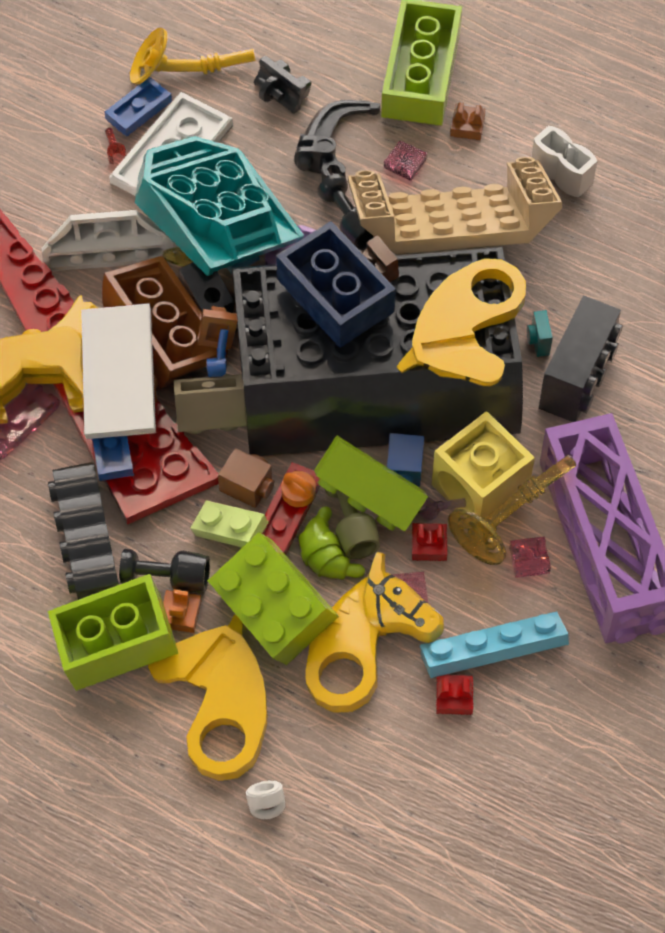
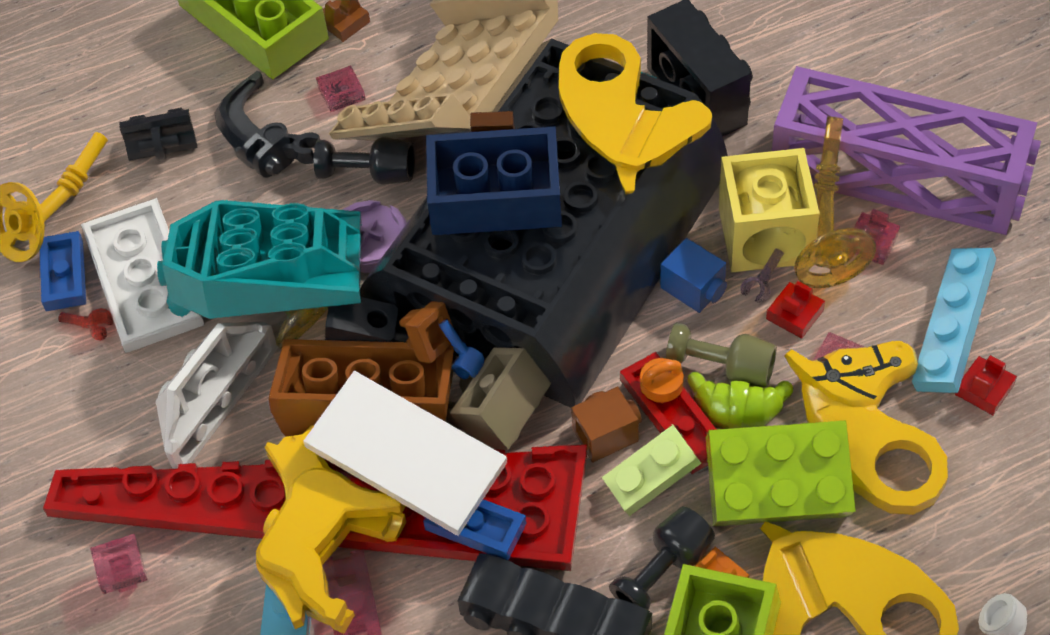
camera: 50 degrees left, 5 degrees down
(369, 485) = (712, 310): lime brick -> none

